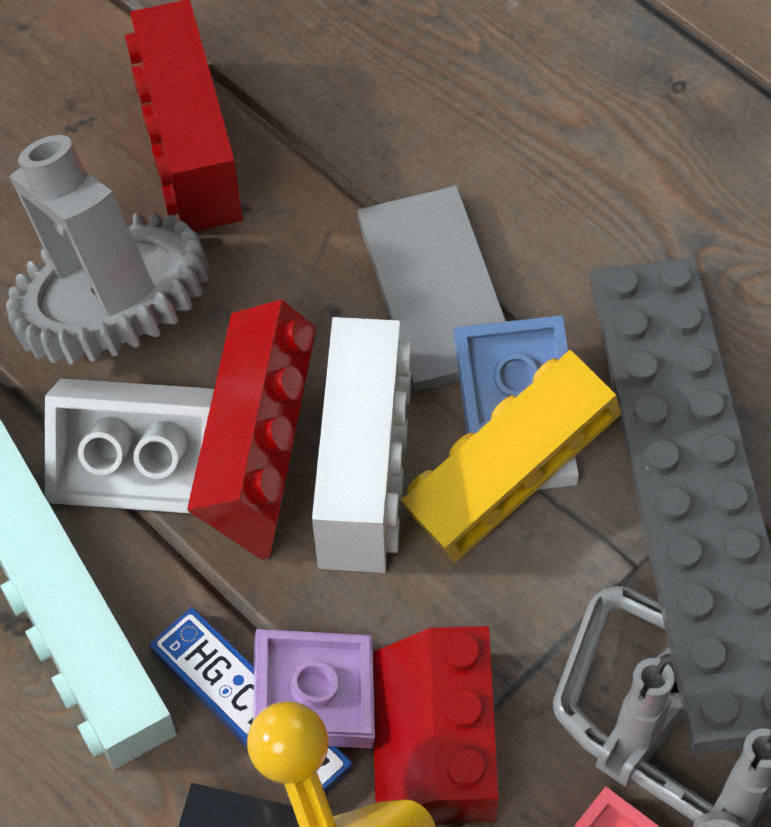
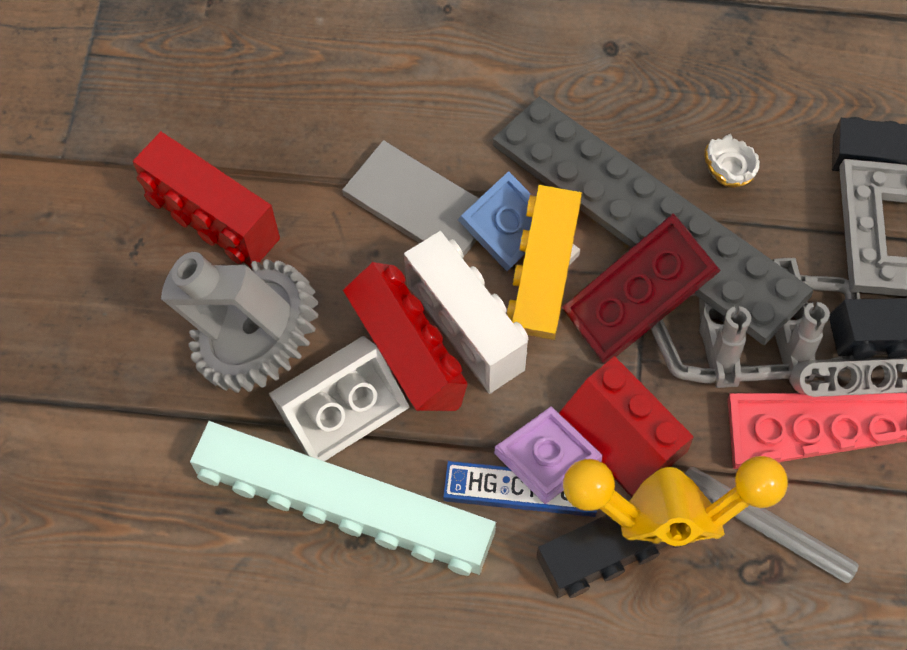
camera: 40 degrees left, 5 degrees up
(601, 570) = (640, 288): none -> dark red tile

